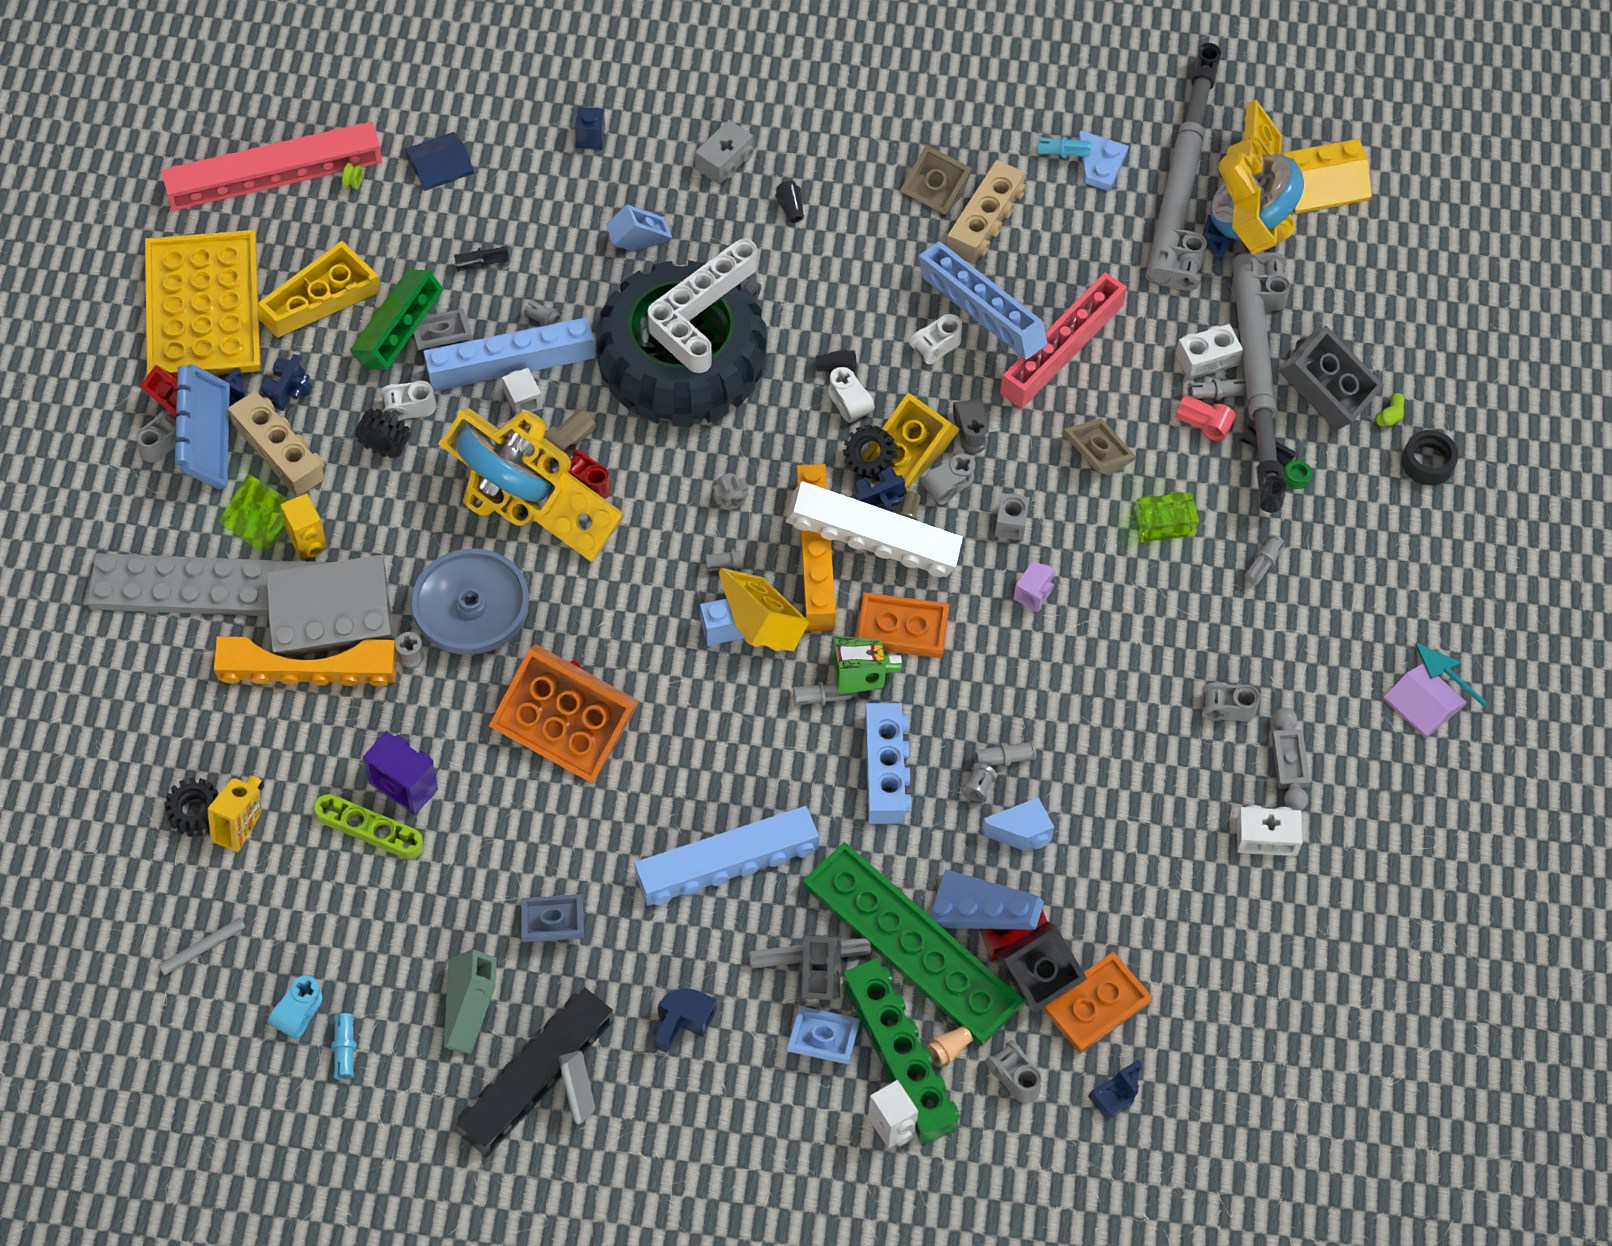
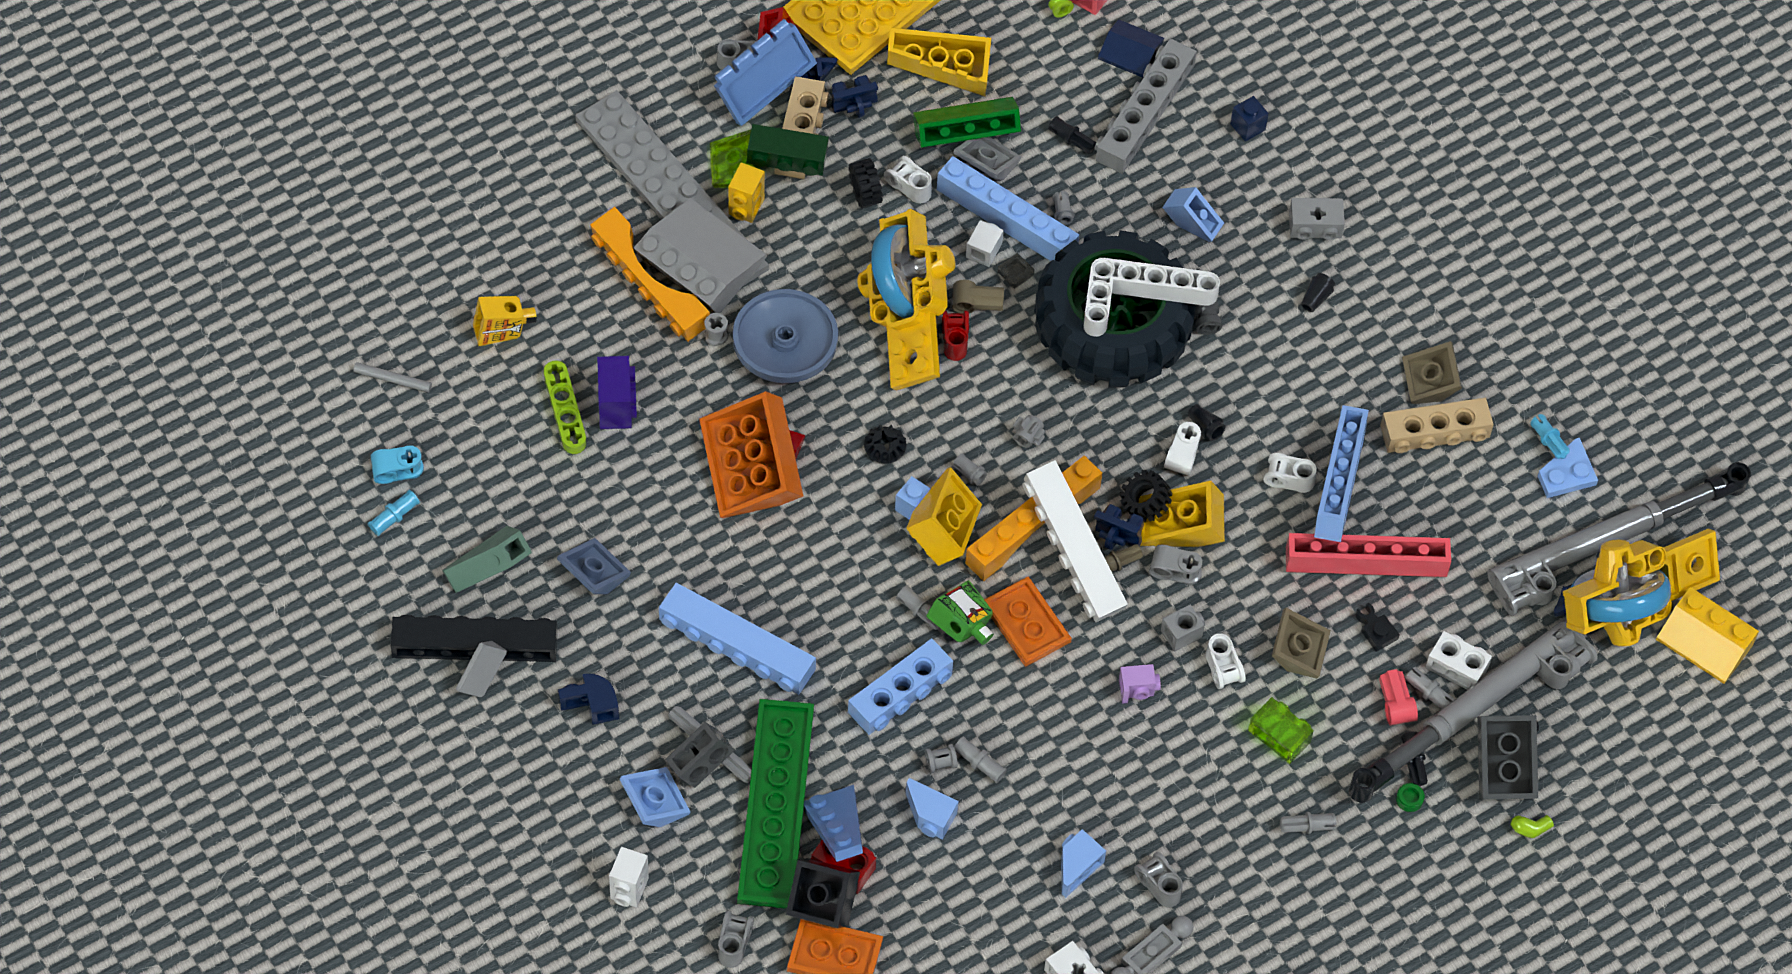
camera: 50 degrees right, 0 degrees up
(180, 797) = (478, 282): black tyre -> none
(298, 463) = (787, 150): none -> dark green brick
(506, 188) = (1120, 154): none -> light grey brick
(568, 389) = (1016, 270): none -> clear smoke plate
(644, 615) = (877, 451): none -> black gear
(874, 978) = (712, 791): green brick -> none
(948, 1045) = (716, 880): light nougat cone -> none
(972, 422) = (1237, 547): dark grey piece -> none
(1069, 512) = (1224, 666): none -> white piece
(1130, 385) = (1377, 630): none -> black plate
(1163, 750) = (1079, 860): none -> light blue slope
(1435, 440) = (1522, 861): black tyre -> none

